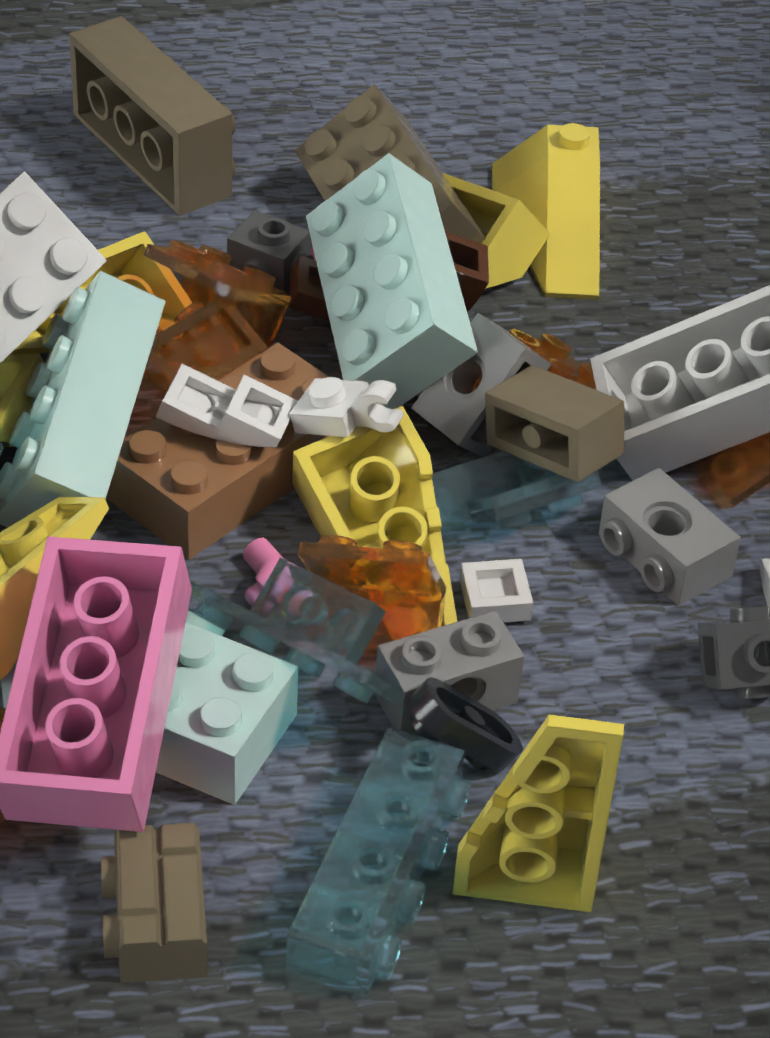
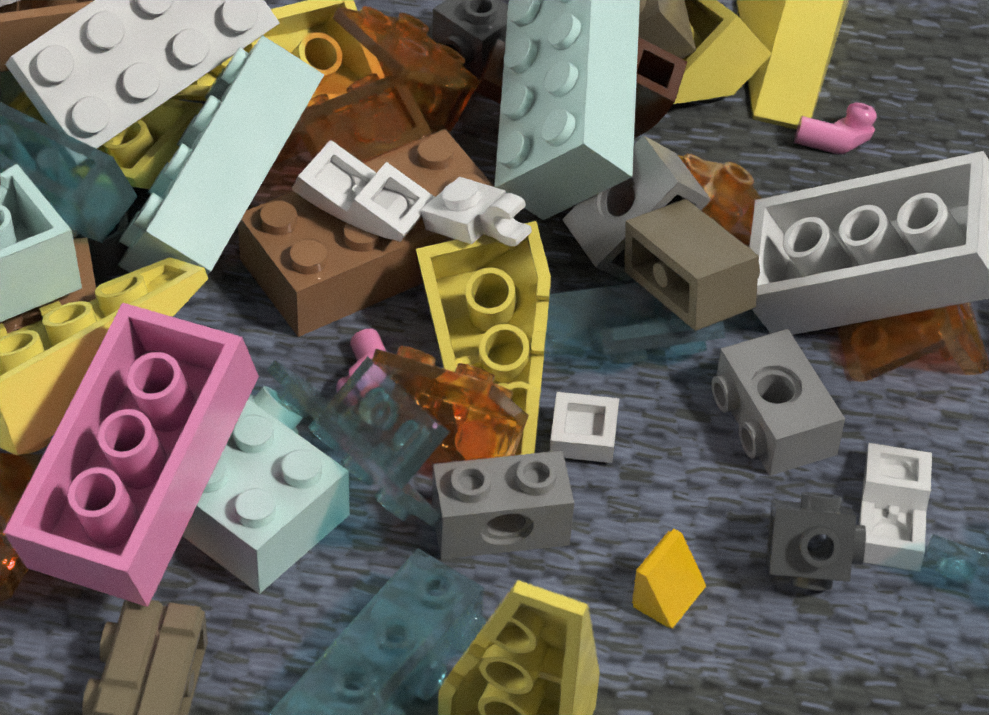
camera: 15 degrees right, 5 degrees up
(463, 723) = (491, 554): black plate -> none
(629, 705) = (667, 581): none -> yellow slope
(630, 298) = (840, 136): none -> bright pink arm

